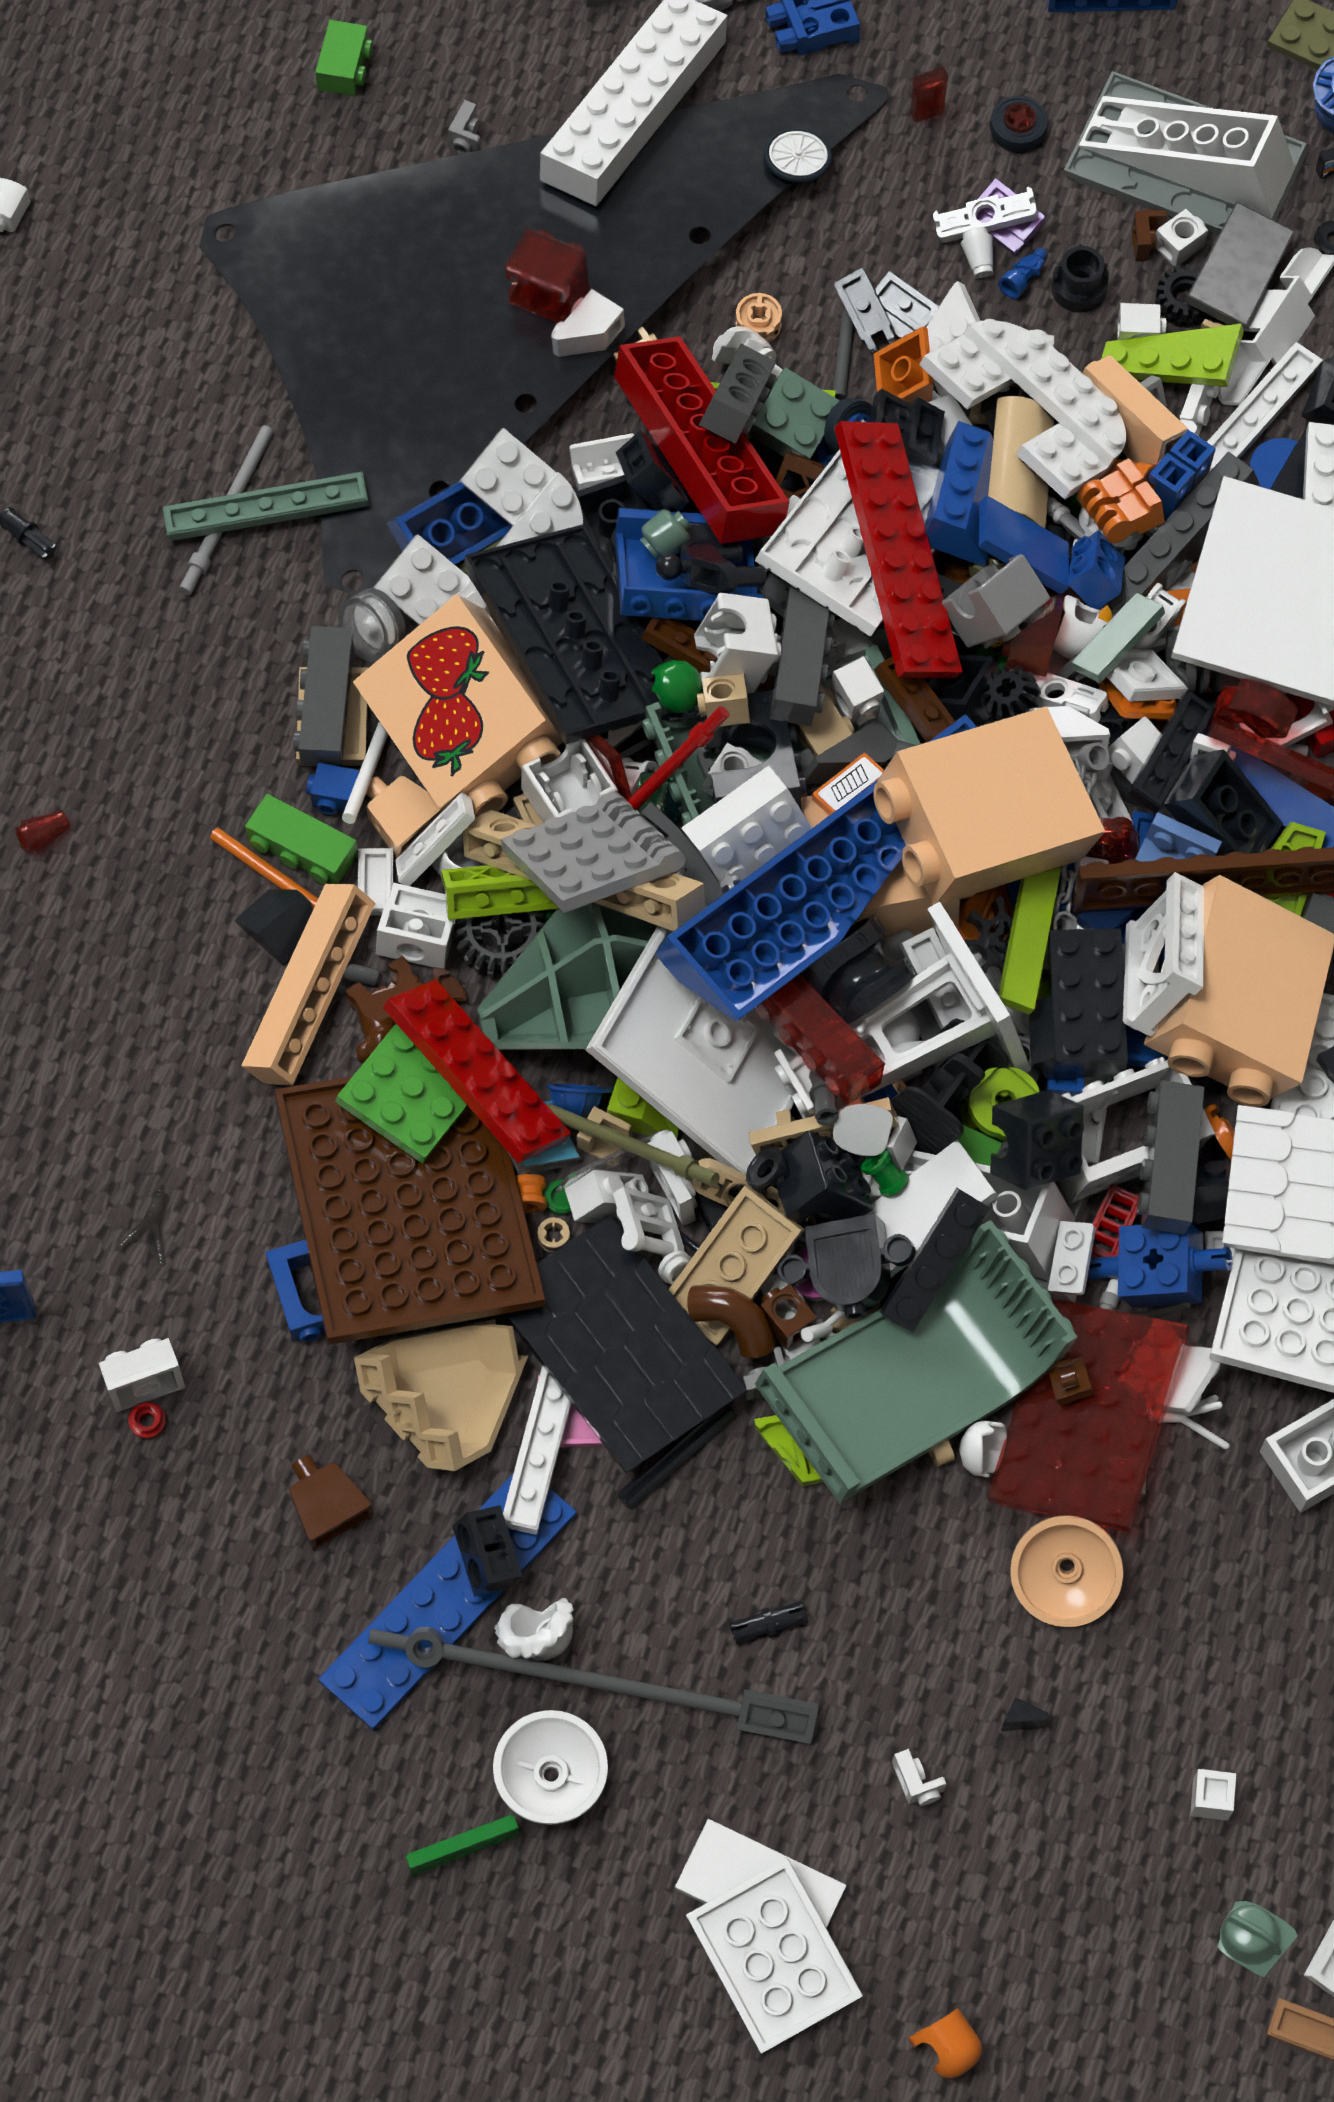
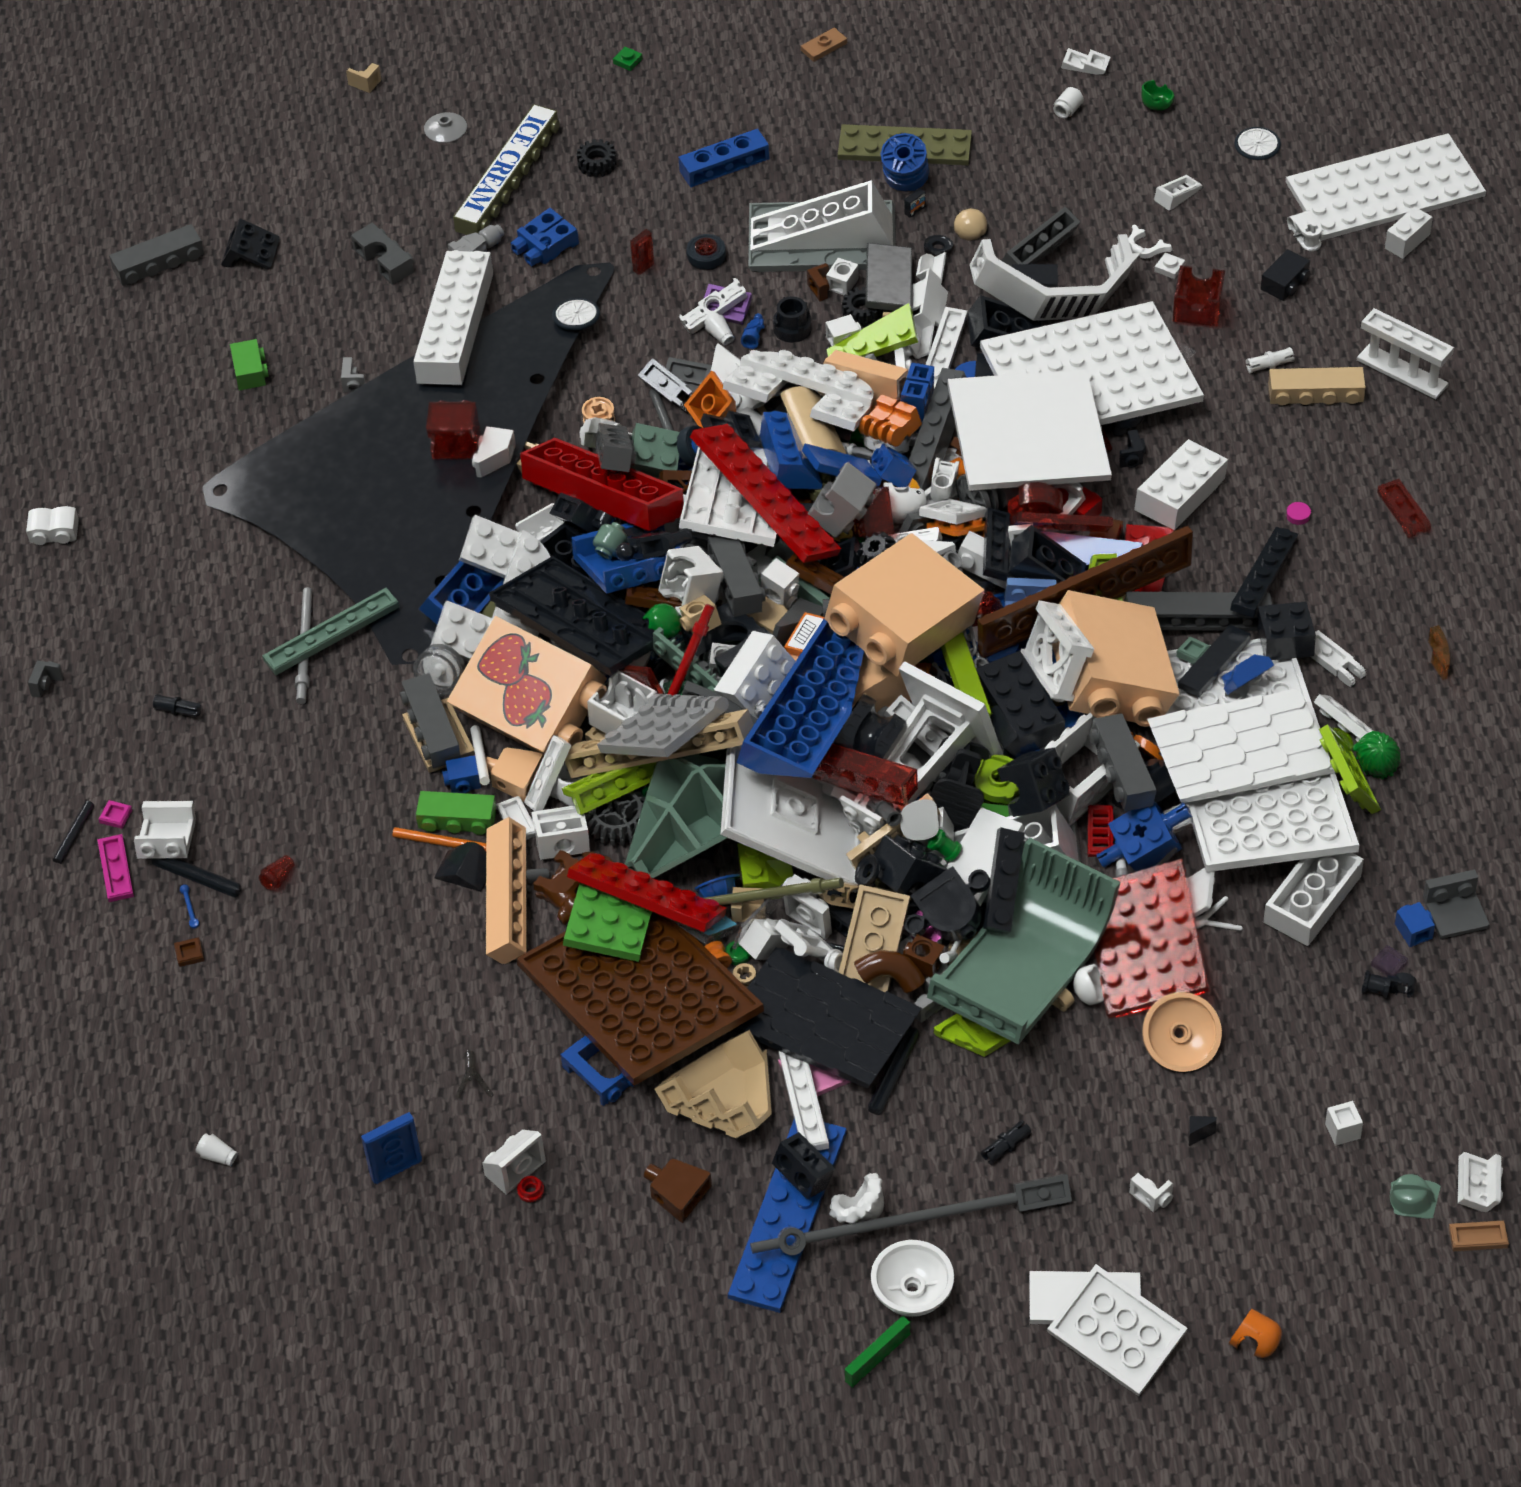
camera: 20 degrees left, 15 degrees down
(1070, 1380) = (1125, 921): reddish brown tile -> none
(1071, 1260) = (1087, 848): white bracket -> none
(1118, 637) = (929, 492): tile -> none

